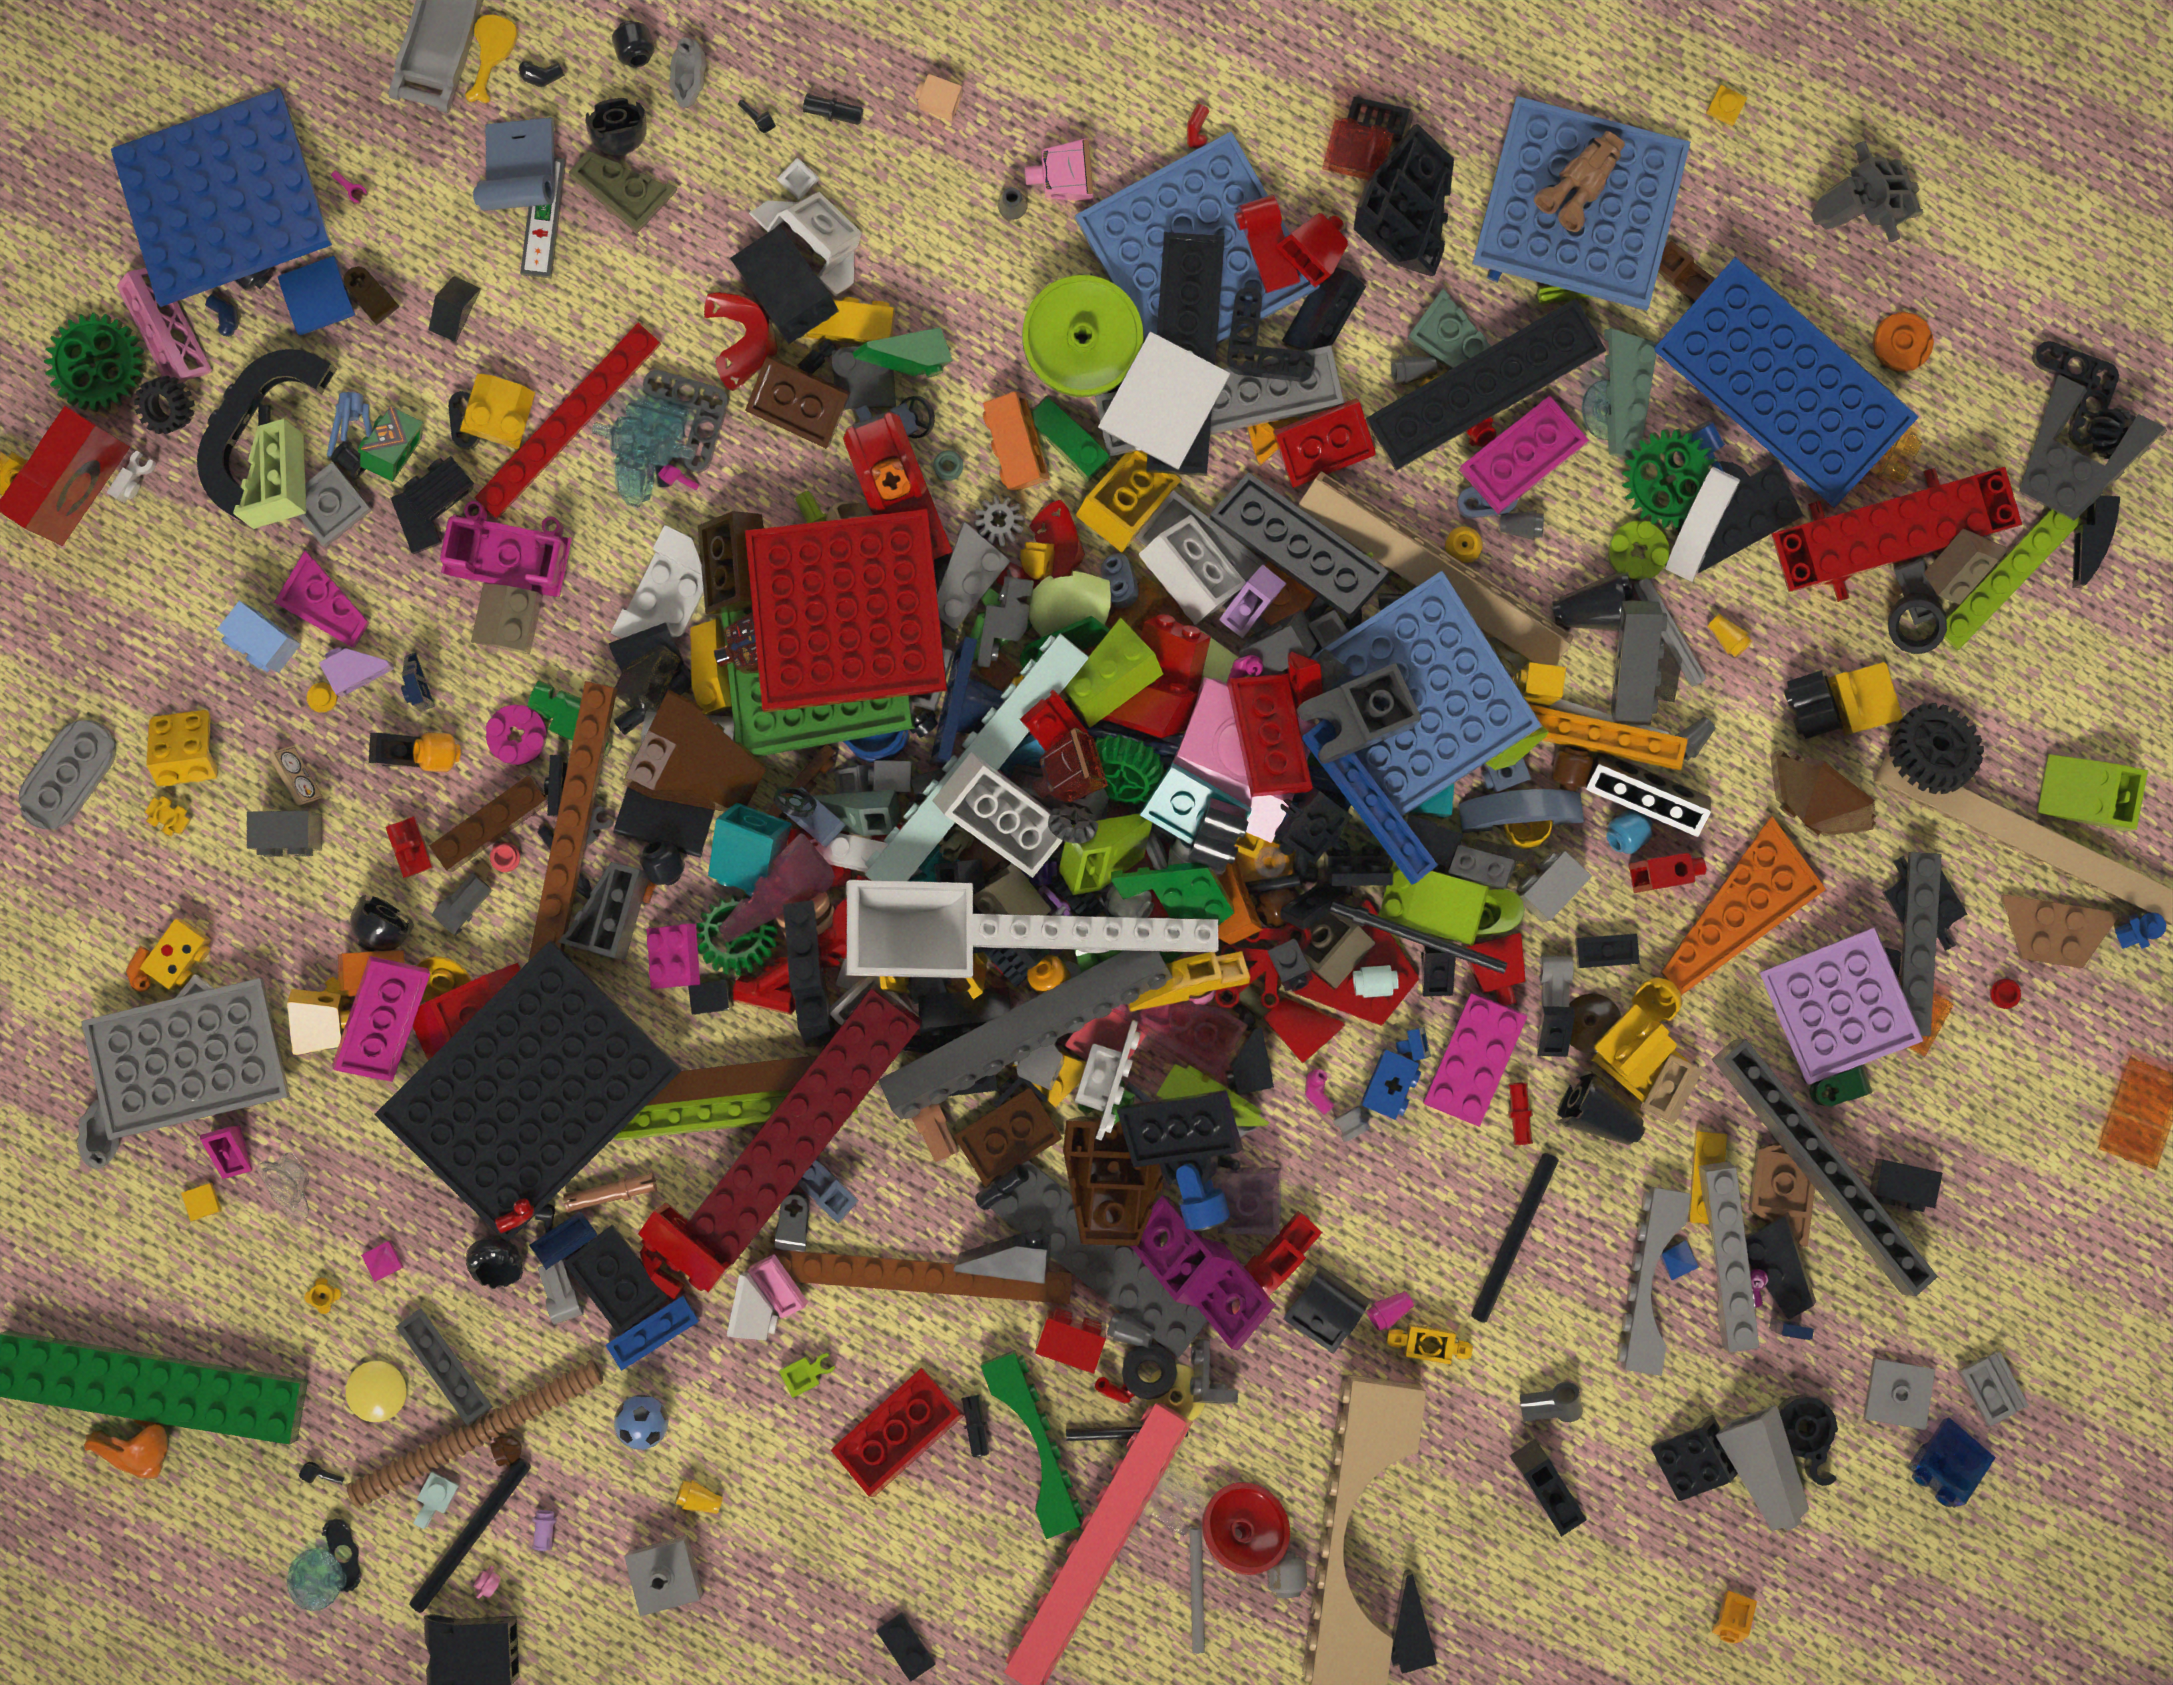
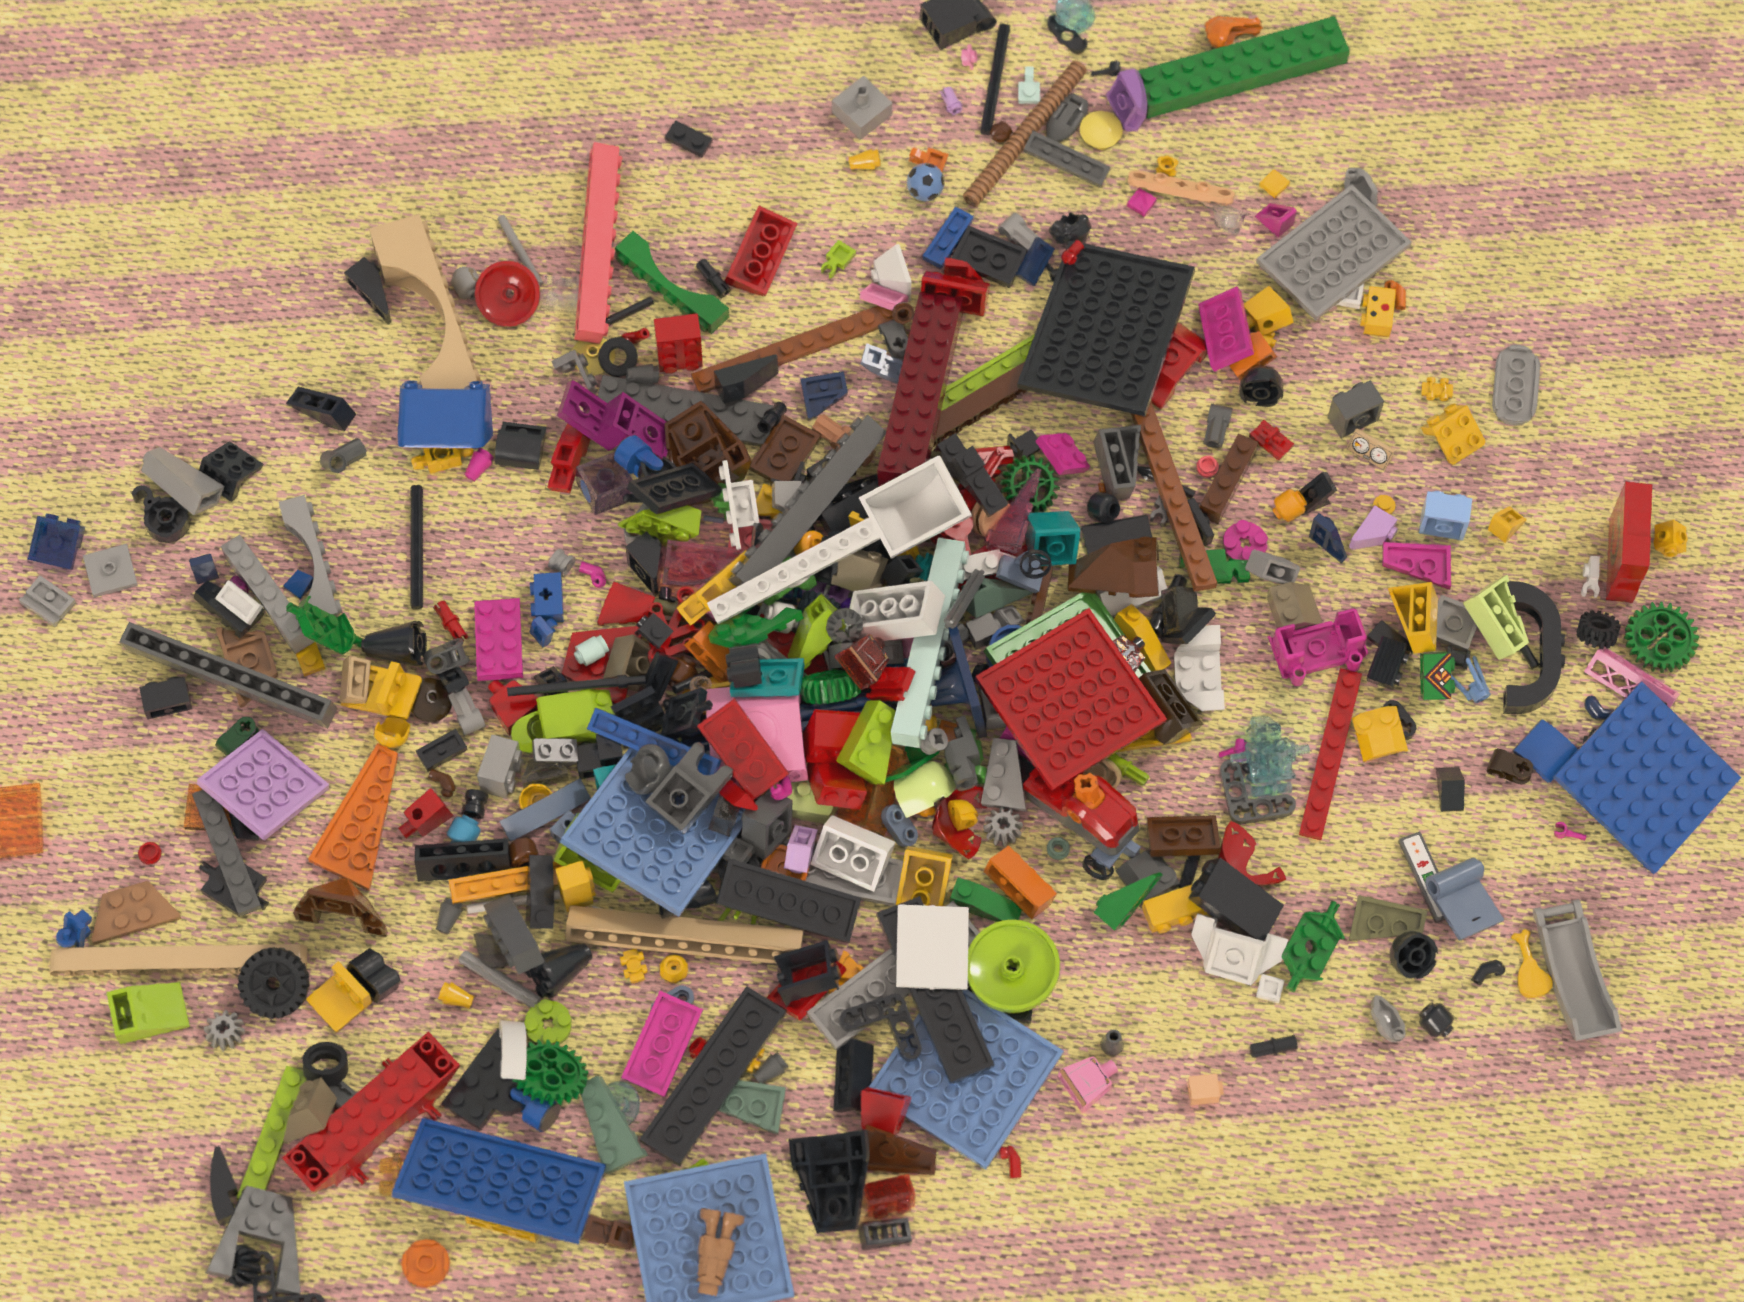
camera: 155 degrees right, 20 degrees down
(188, 598) = (1506, 523): none -> yellow slope
(319, 1407) = (1128, 99): none -> medium lavender slope
(335, 1265) = (1179, 187): none -> light nougat piece
(369, 524) = (1417, 612): none -> yellow wedge
(411, 1429) = (1066, 117): none -> dark grey piece
(440, 968) = (1202, 374): yellow dish -> none
(506, 674) = (1272, 567): none -> light grey brick
(614, 1454) = (931, 156): none -> orange plate
(621, 1189) = (1015, 309): nougat pin -> none
(743, 182) = (1323, 934): none -> green plate
(763, 122) = (1318, 1013): black hand -> none
(769, 1242) = (903, 313): none -> reddish brown plate
(907, 794) = (964, 598): none -> dark grey axle
(920, 1195) = (822, 392): none -> dark blue wing
(1024, 643) = (934, 736): none -> light grey wheel
(1103, 1028) = (757, 530): none -> black tile
(1263, 231) = (925, 1106): red door -> none
(1322, 194) = (898, 1154): none -> reddish brown wing
(1347, 453) = (804, 958): none -> black window
(1395, 764) = (648, 769): none -> dark grey piece
(1412, 1378) = (444, 416): none -> blue windscreen
(1507, 575) = (634, 970): none -> yellow piece
(1523, 524) = (638, 1000): dark grey cone -> none
(1551, 1066) = (448, 656): none -> dark grey piece
(1580, 701) = (540, 892): none -> black slope
(1600, 860) = (474, 804): none -> black wheel
(1619, 909) = (445, 781): none -> reddish brown arm
(1668, 1162) = (324, 627): none -> green plate
(1735, 1618) = (160, 388): light orange bracket -> none
(1770, 1258) = (239, 602): none -> white tile
(2025, 725) = (231, 1034): none -> light grey gear

